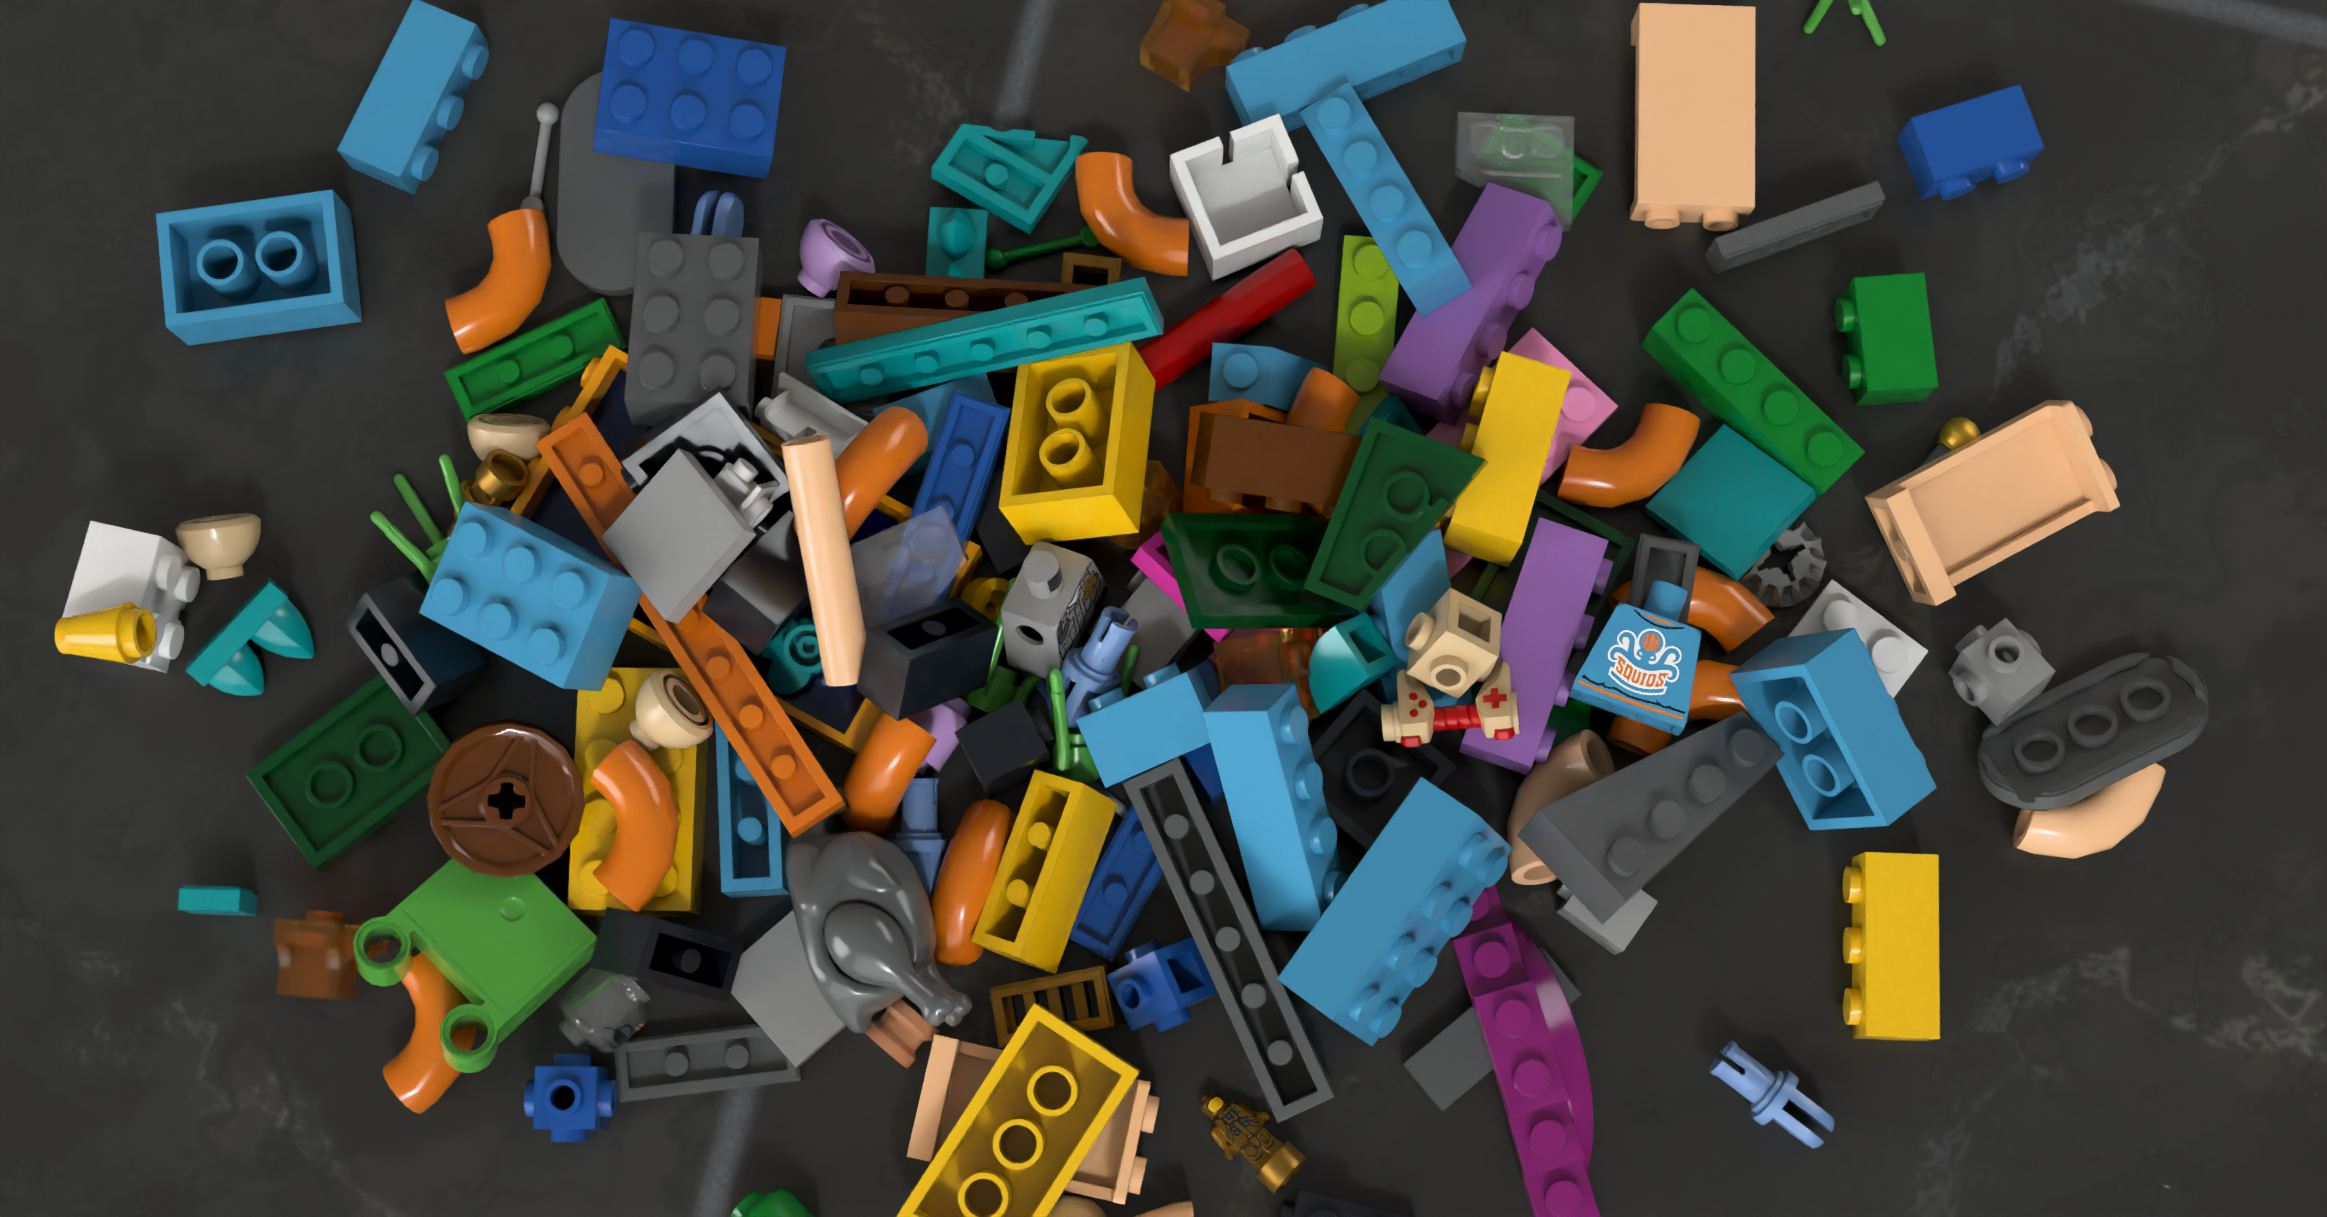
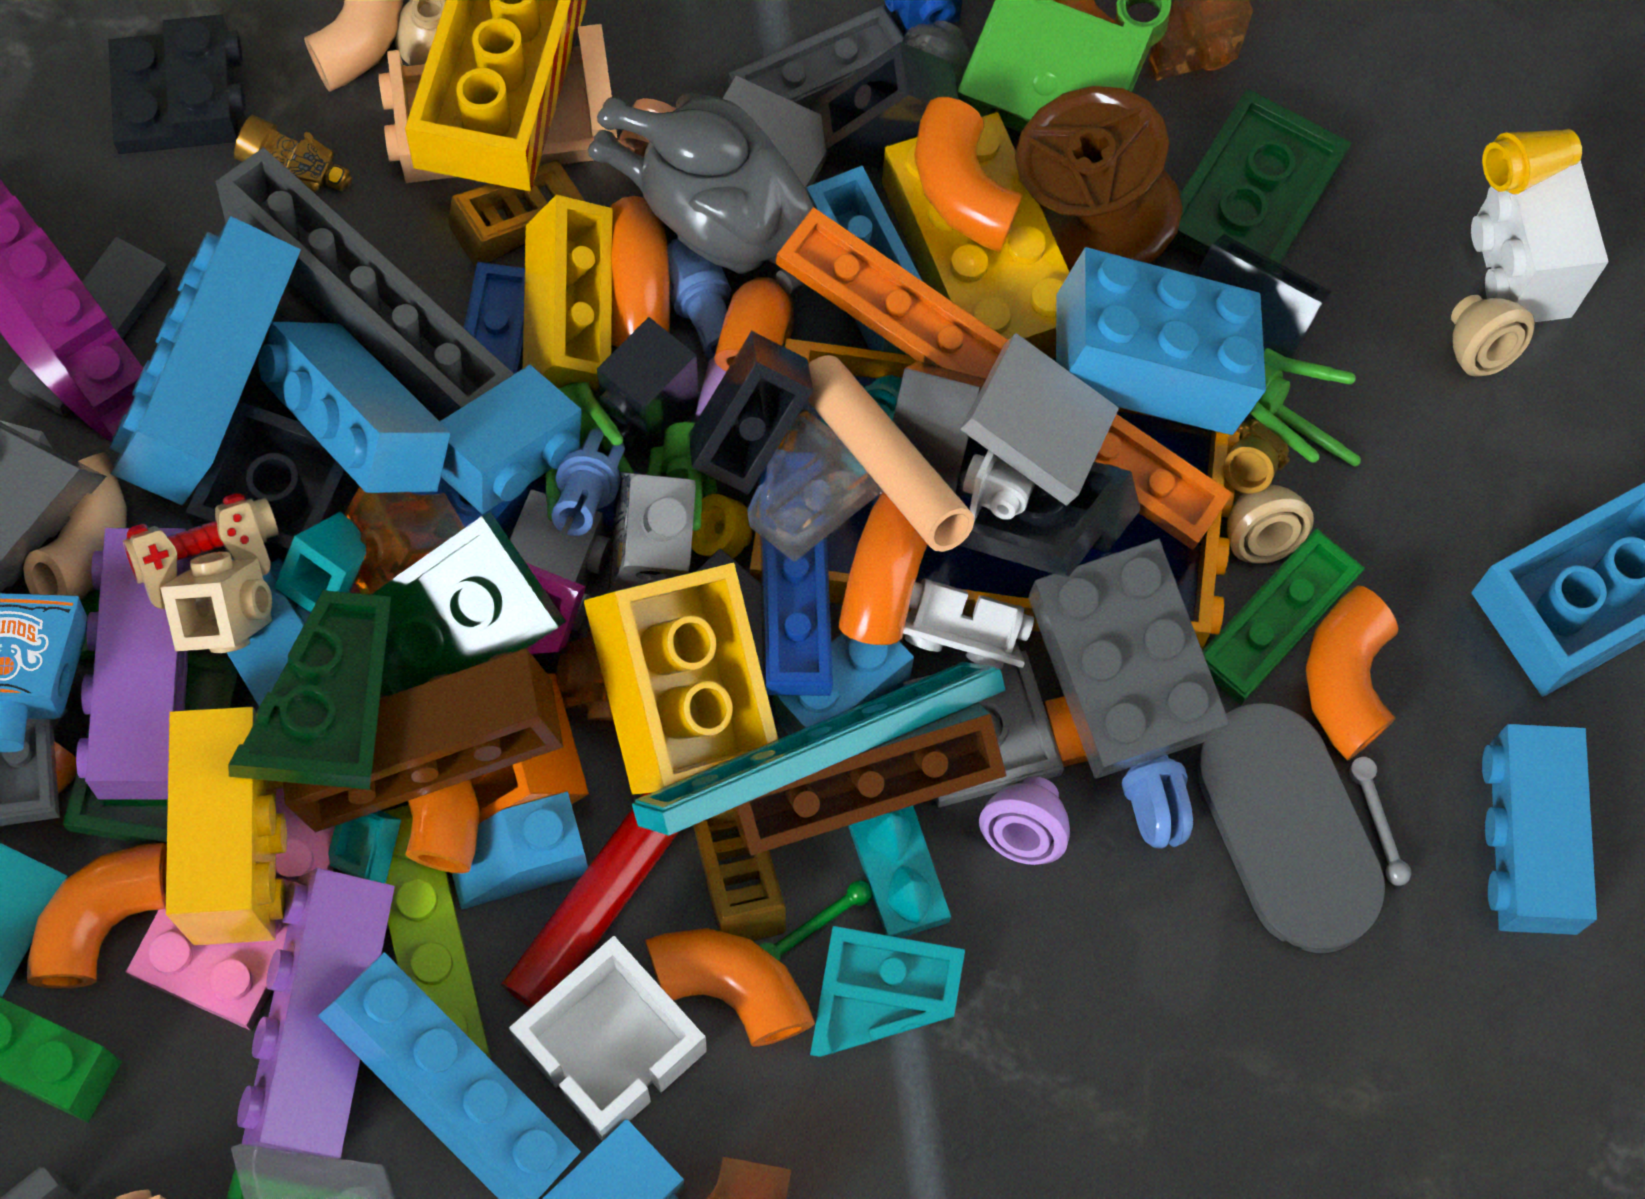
camera: 155 degrees right, 10 degrees down
(217, 900) = (1317, 38): teal tile -> none
(266, 620) = (1415, 282): teal tile -> none
(670, 713) = (977, 281): tan brick -> none
(689, 99) = (1255, 919): blue brick -> none
(1150, 988) = (423, 240): blue brick -> none

